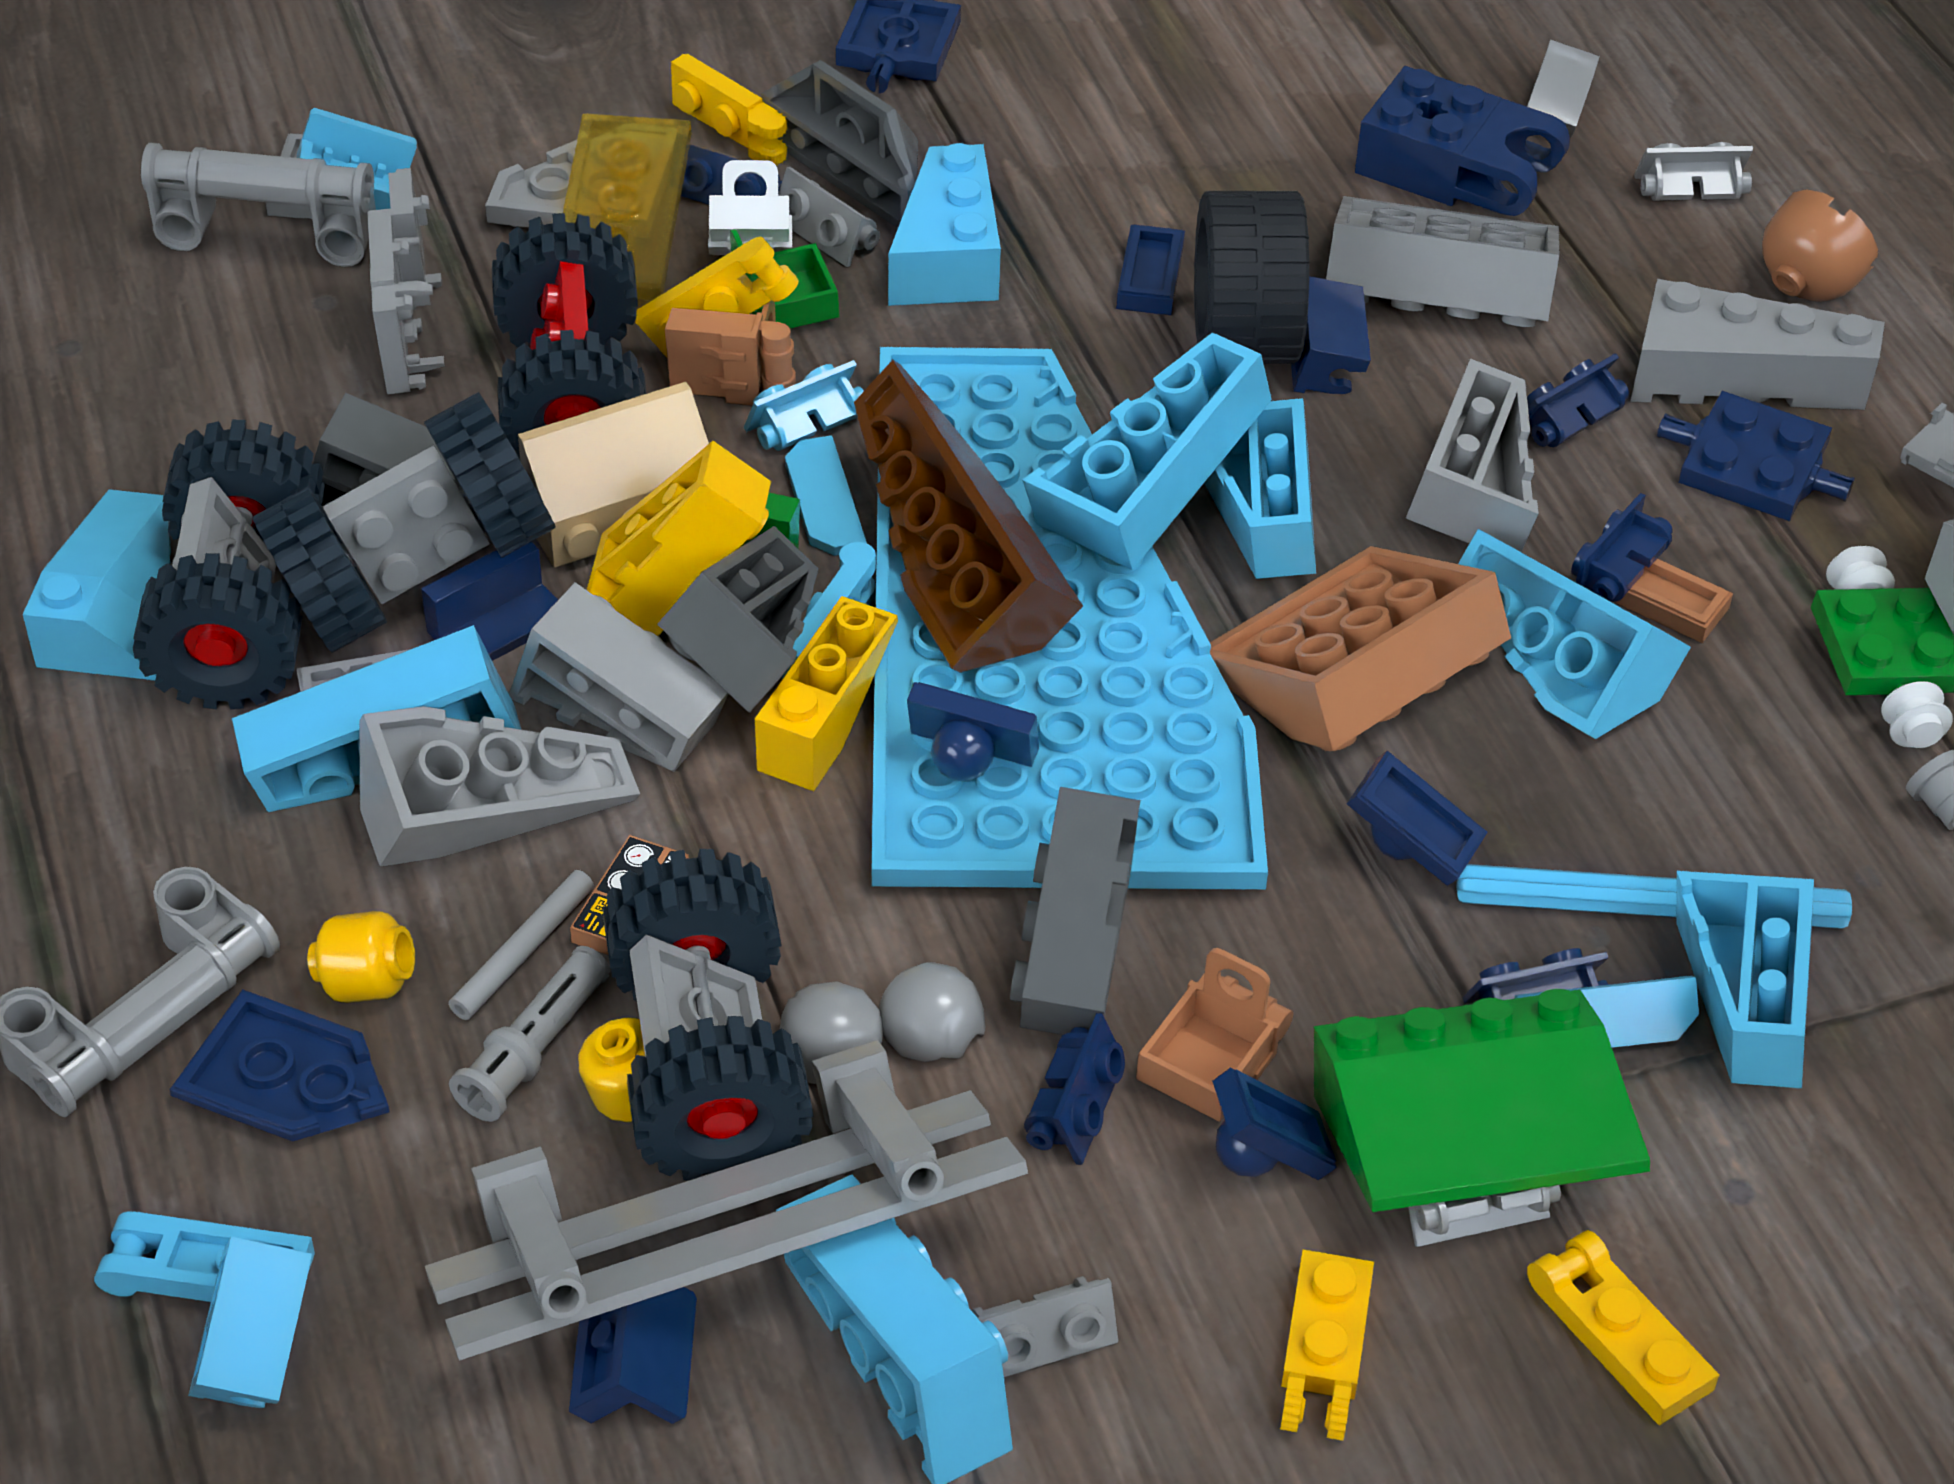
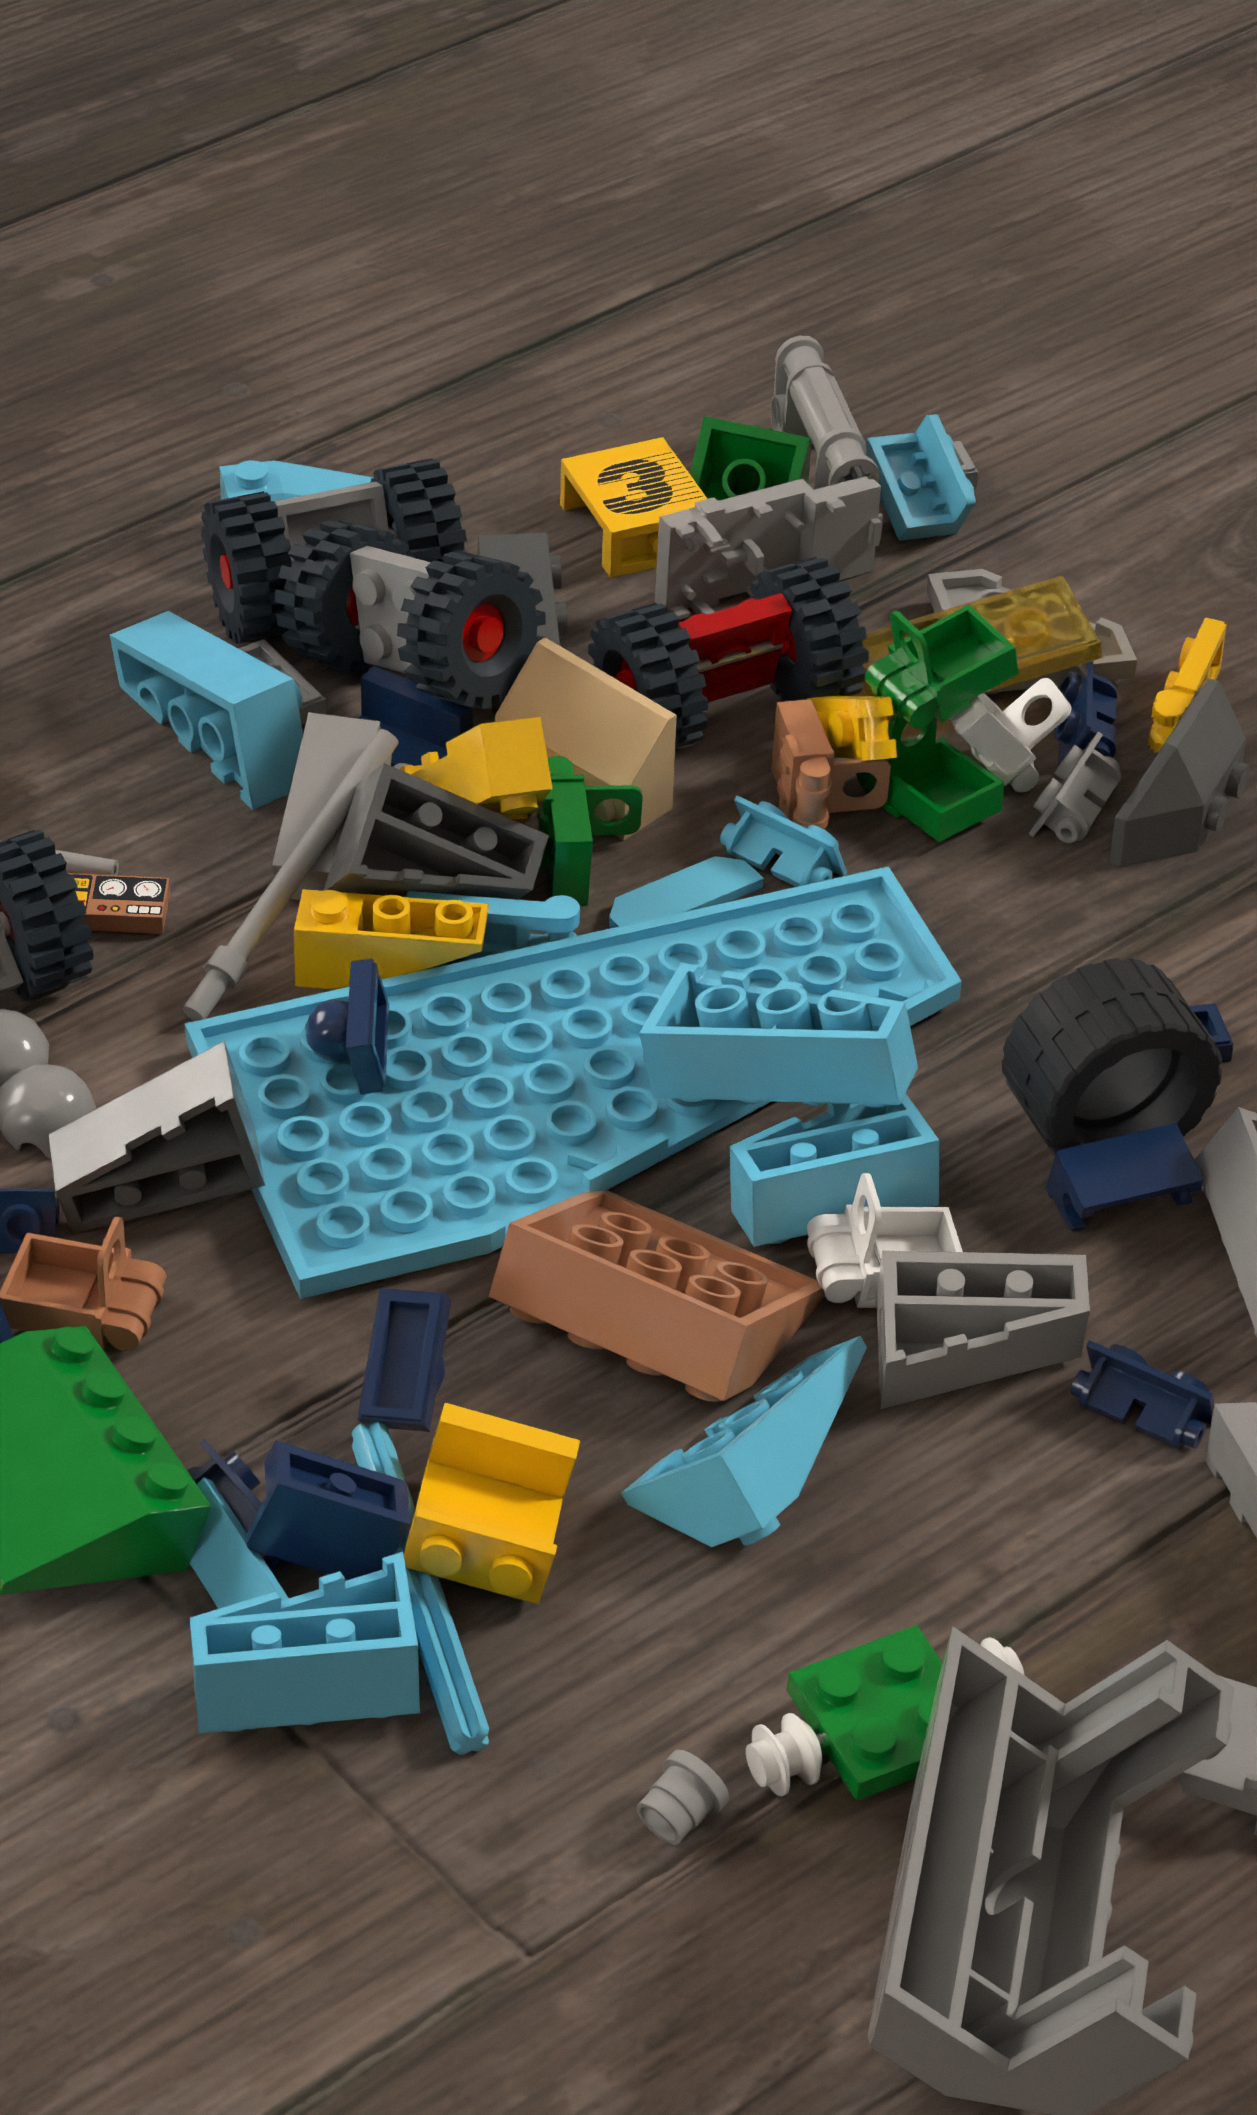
camera: 70 degrees right, 5 degrees down
(252, 343) = (627, 495): none -> yellow panel
(273, 275) = (746, 458): none -> green slope
(461, 784) = (171, 764): light grey wedge -> none
(729, 194) = (941, 666): none -> green piece
(790, 817) = (230, 961): none -> light grey bar
(948, 233) = (1101, 869): medium azure wedge -> none
(963, 542) = (619, 966): reddish brown wedge -> none
(1363, 493) = (852, 1243): none -> white piece
(1599, 825) = (490, 1503): none -> yellow panel
(1599, 901) = (328, 1513): none -> dark blue panel
(1622, 551) = (935, 1468): dark blue hinge -> none
(1678, 600) = (887, 1528): nougat tile -> none
(1755, 456) = (1158, 1568): dark blue plate -> none

